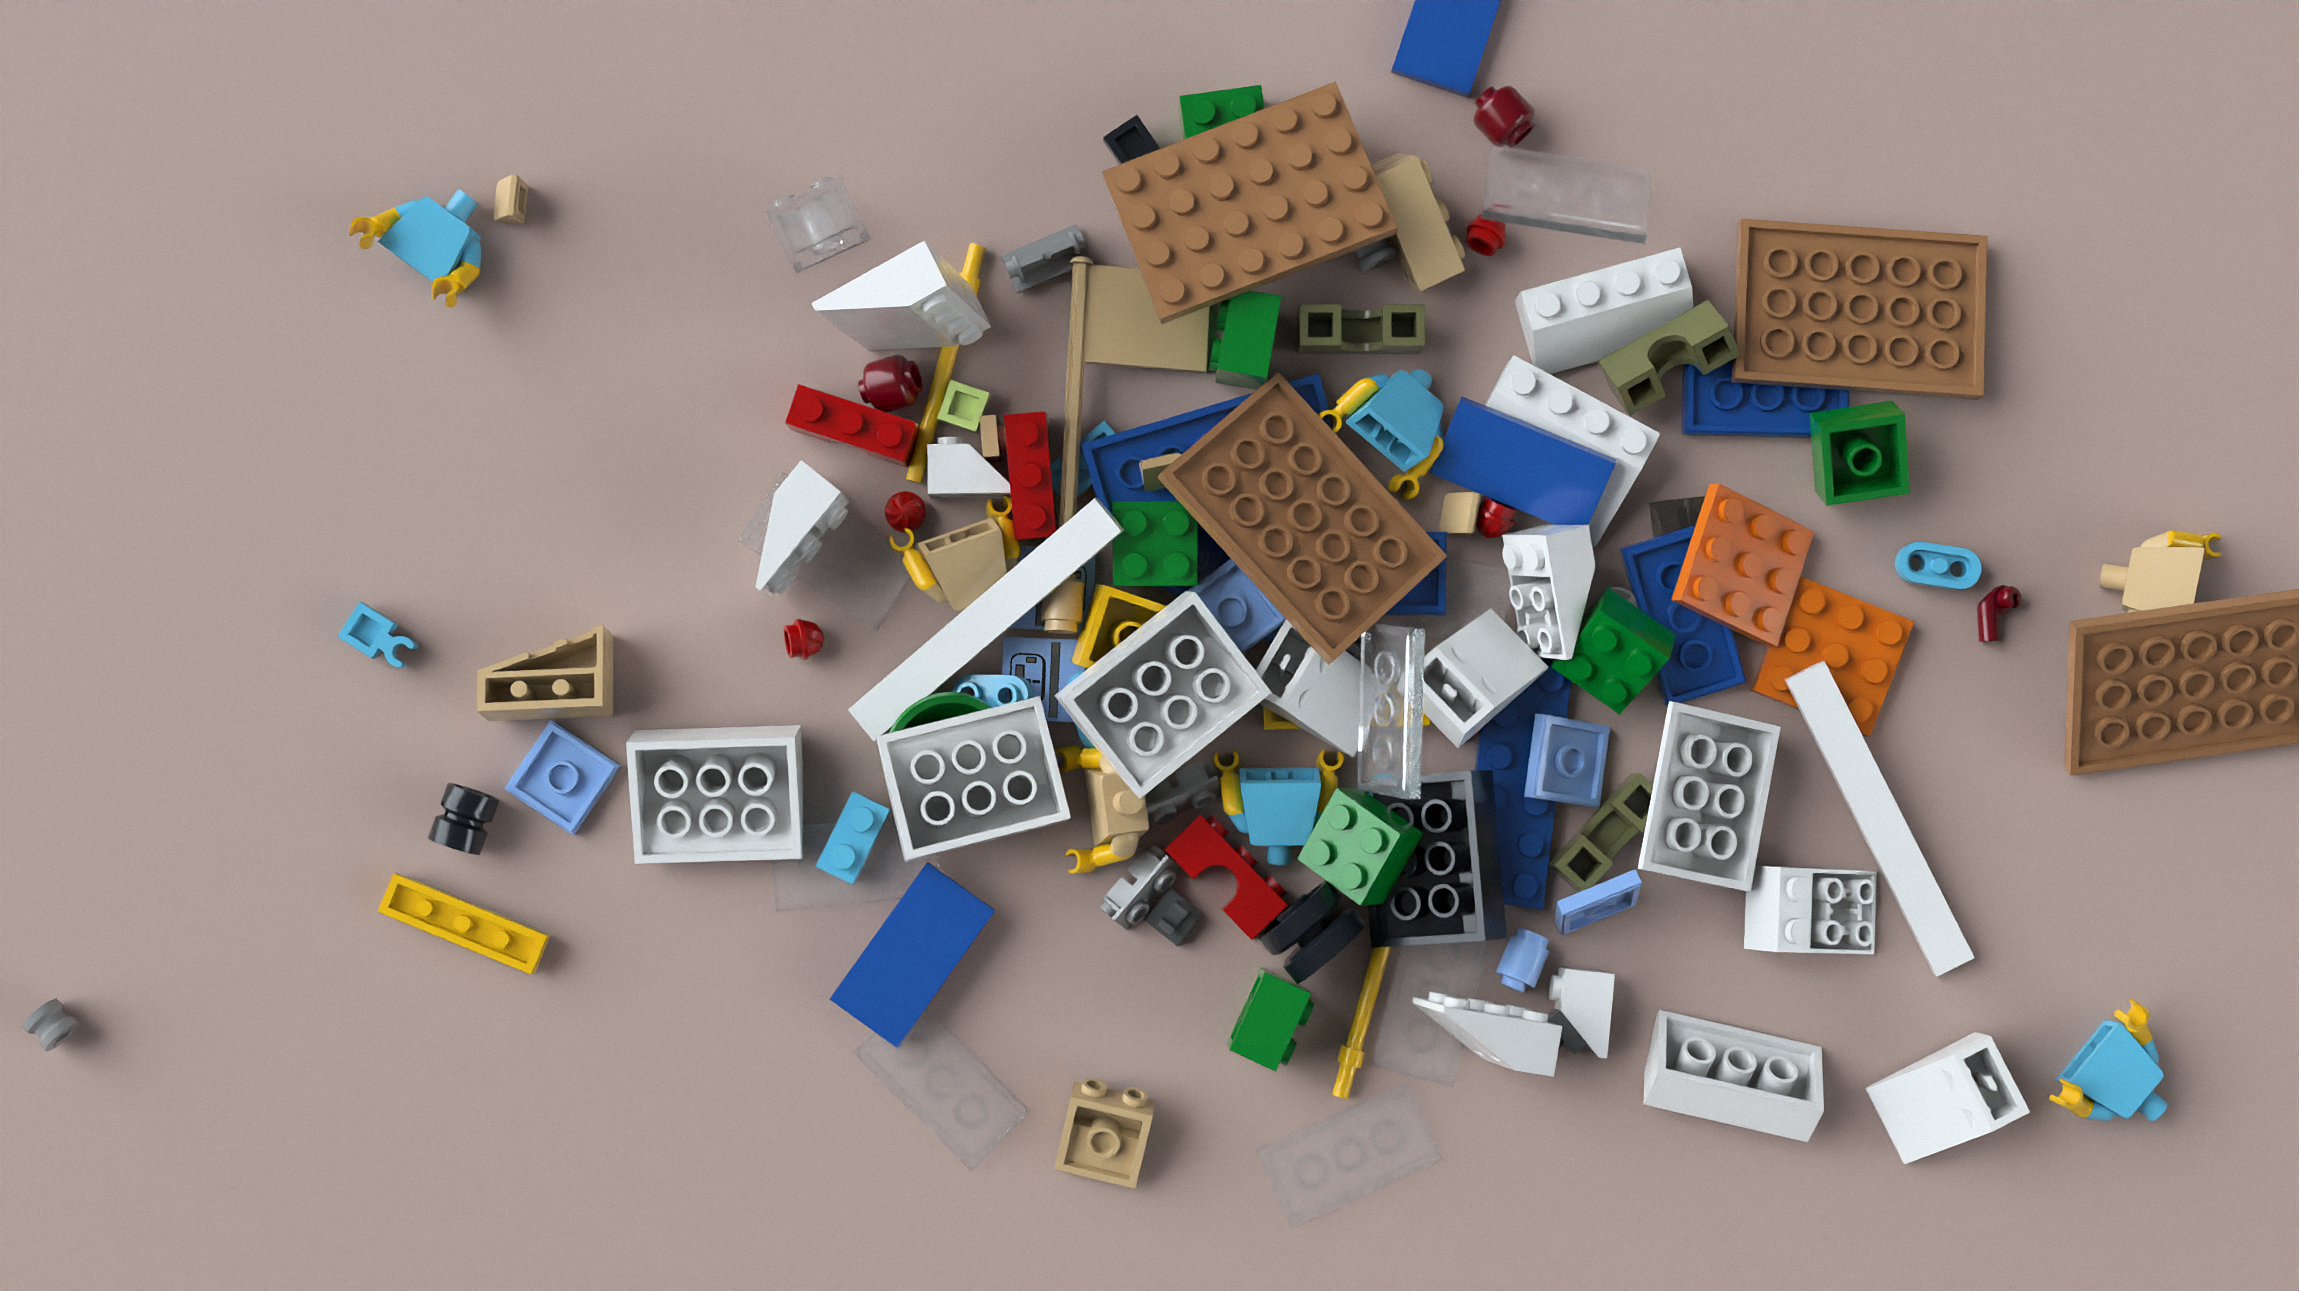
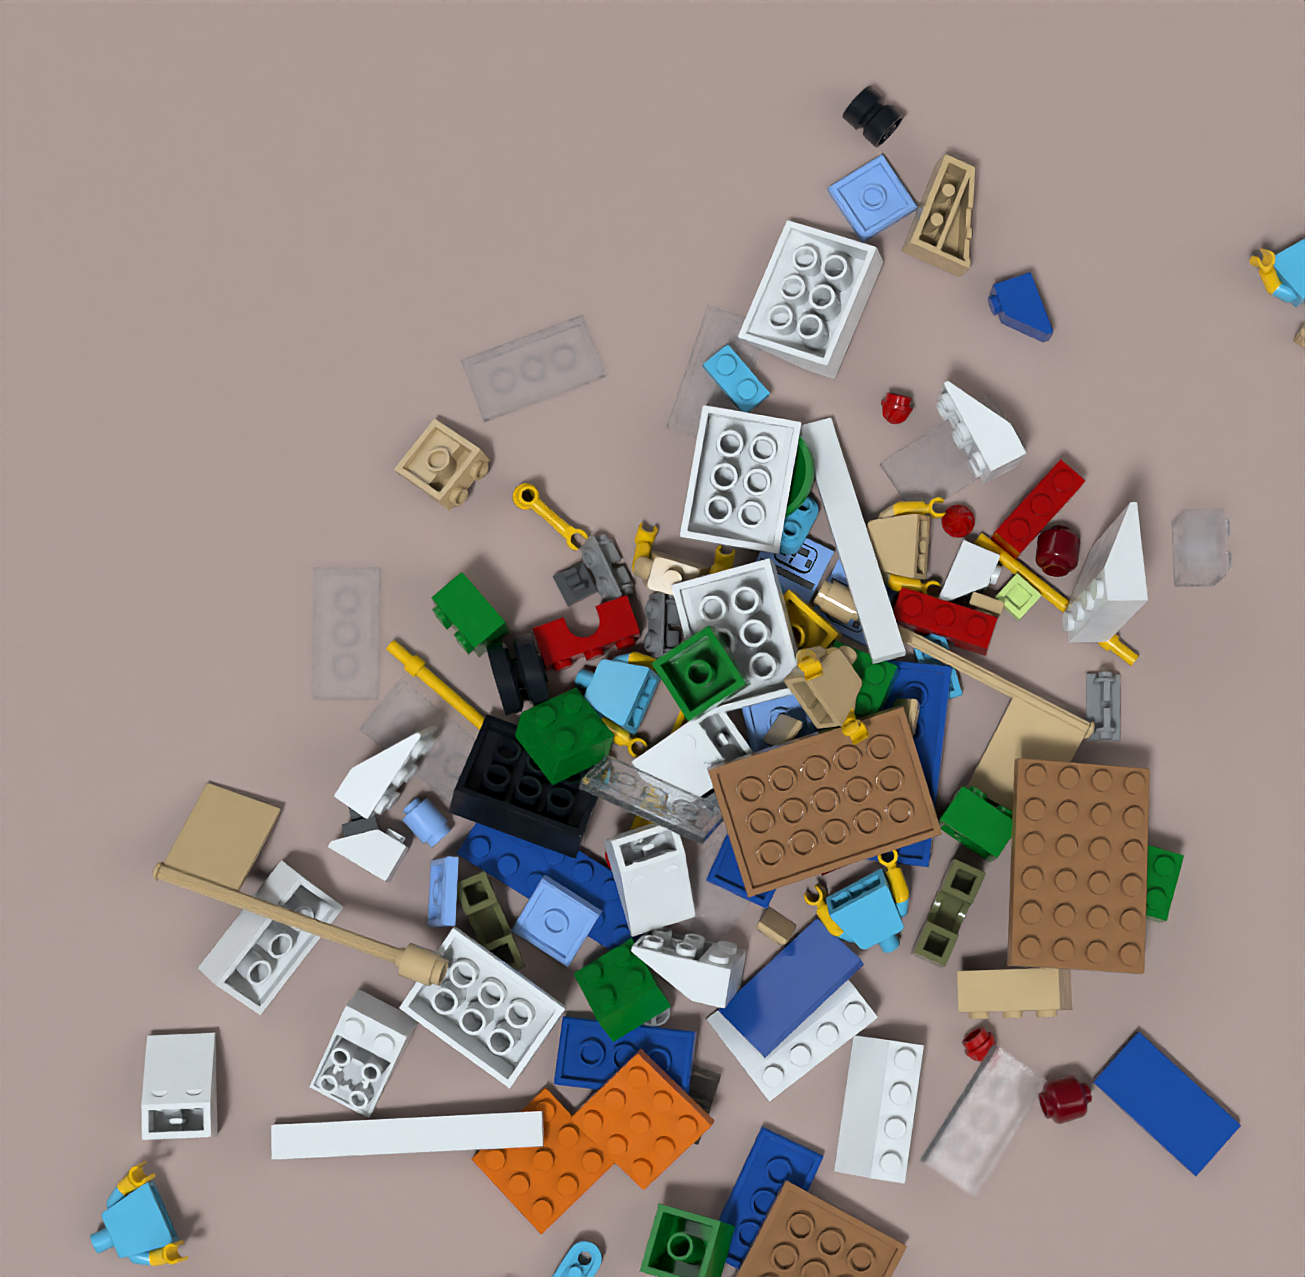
camera: 115 degrees right, 5 degrees down
(373, 633) = (1034, 109): medium azure plate -> none
(464, 923) = (798, 87): yellow plate -> none
(620, 547) = (1021, 307): none -> blue slope
(912, 954) = (633, 385): blue tile -> none
(1106, 989) = (546, 513): none -> yellow brick
(1130, 141) = (1164, 806): black tile -> none
(1181, 564) = (828, 689): none -> tan torso
(1231, 715) = (701, 673): none -> green brick
(1242, 600) = (783, 730): none -> tan slope
(1375, 255) = (999, 952): light grey wheel -> none
(1494, 518) = (761, 950): red plate -> none
(1675, 1179) = (218, 853): none -> tan flag
(1692, 338) = (826, 1110): olive arch -> none

